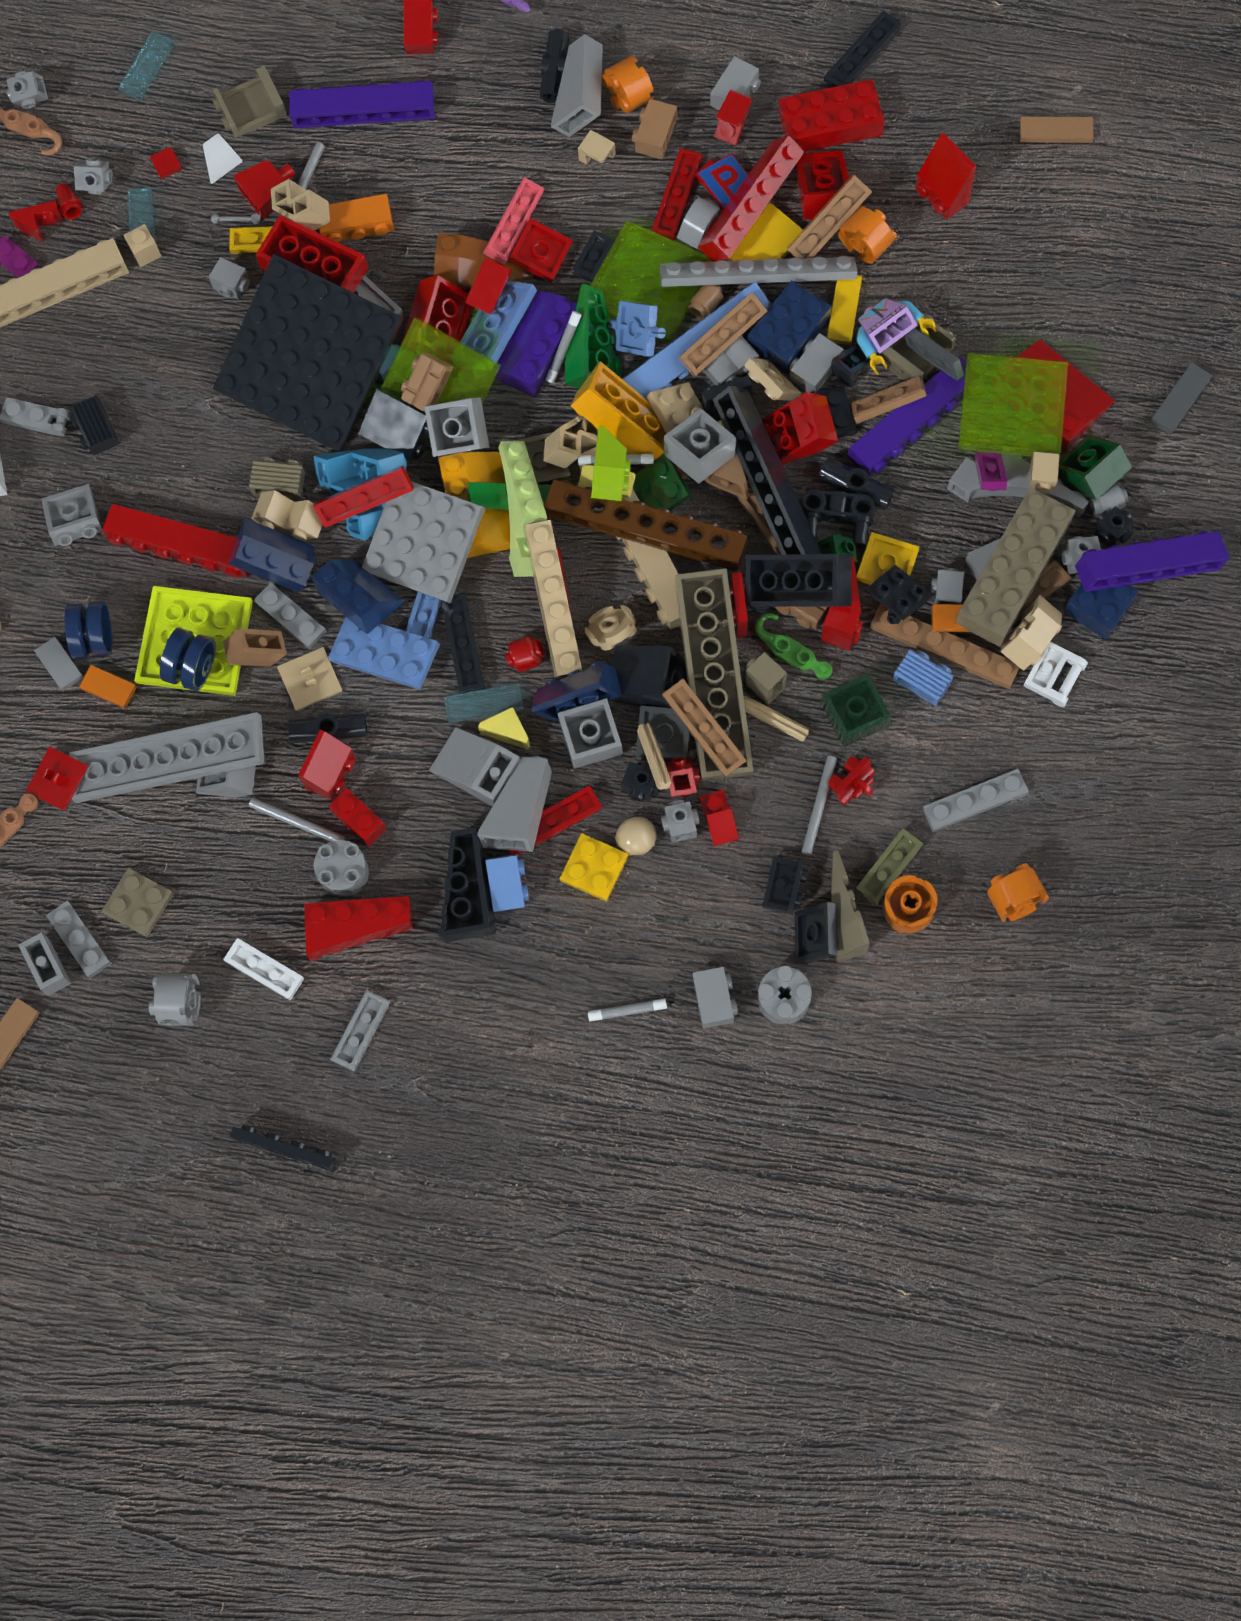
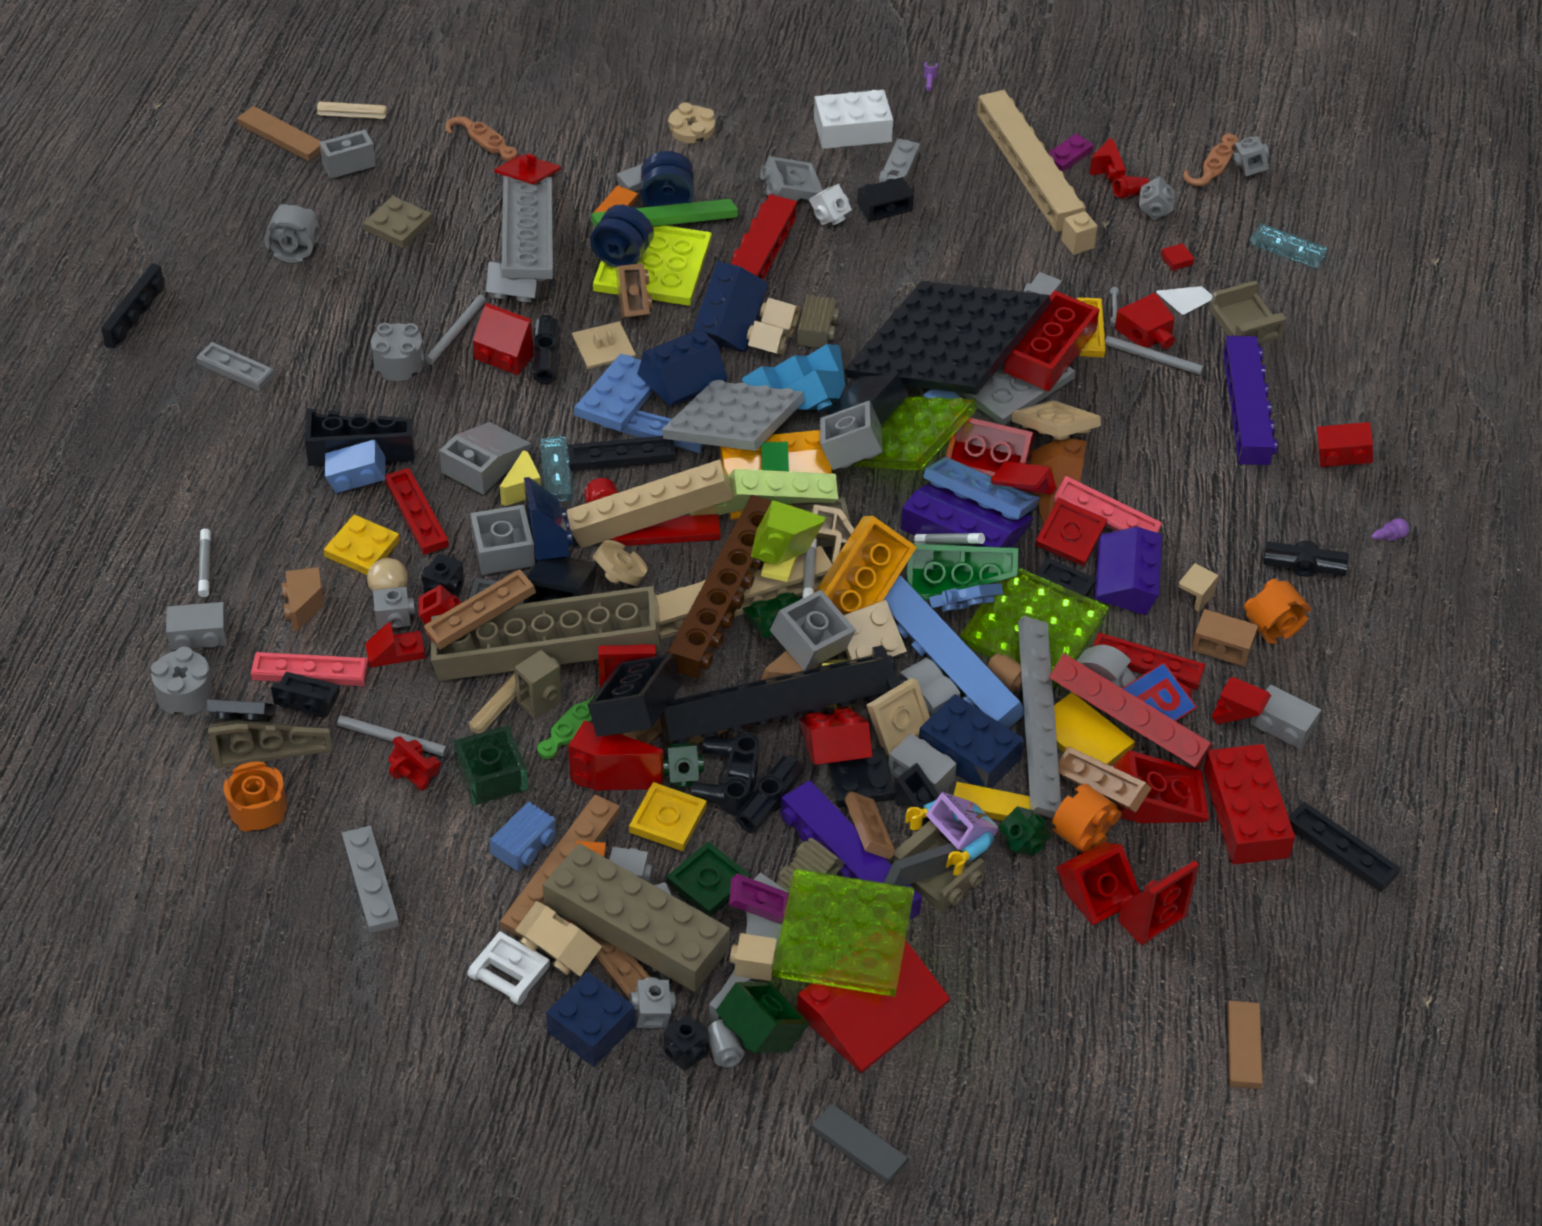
camera: 85 degrees right, 25 degrees down
(78, 939) = (371, 184): light grey plate -> none
(111, 474) = (830, 205): none -> white brick
(130, 632) = (684, 212): none -> bright green tile
(141, 208) = (1121, 238): clear light blue tile -> none
(263, 969) = (311, 299): white plate -> none
(290, 616) = (671, 328): light grey plate -> none
(300, 205) = (1115, 332): tan brick -> none
(353, 922) = (341, 355): red wedge -> none
(357, 817) = (447, 365): red brick -> none
(359, 218) = (1110, 389): orange brick -> none
(363, 496) = (780, 365): red plate -> none
(408, 260) = (1056, 419): none -> tan plate
(426, 381) = (903, 411): medium nougat brick -> none
(519, 808) = (432, 478): light grey slope -> none
(580, 87) = (1268, 566): light grey slope -> none
(583, 201) = (1129, 569): none -> dark purple slope
(654, 756) = (463, 580): tan axle -> none
(668, 906) = (304, 595): none -> medium nougat slope
(722, 334) = (954, 667): medium nougat plate -> none
(748, 890) = (325, 668): none -> coral tile
(879, 282) = (1025, 831): none -> dark green brick
(889, 866) = (310, 790): olive plate -> none
(898, 594) = (622, 809): black hinge -> none
(919, 228) = (1098, 881): none -> red slope
(942, 439) = (810, 857): none -> dark tan brick
(948, 525) = (705, 878): none -> dark green plate
(1016, 893) = (243, 893): orange brick -> none
(1151, 561) = (628, 1062): dark purple brick -> none

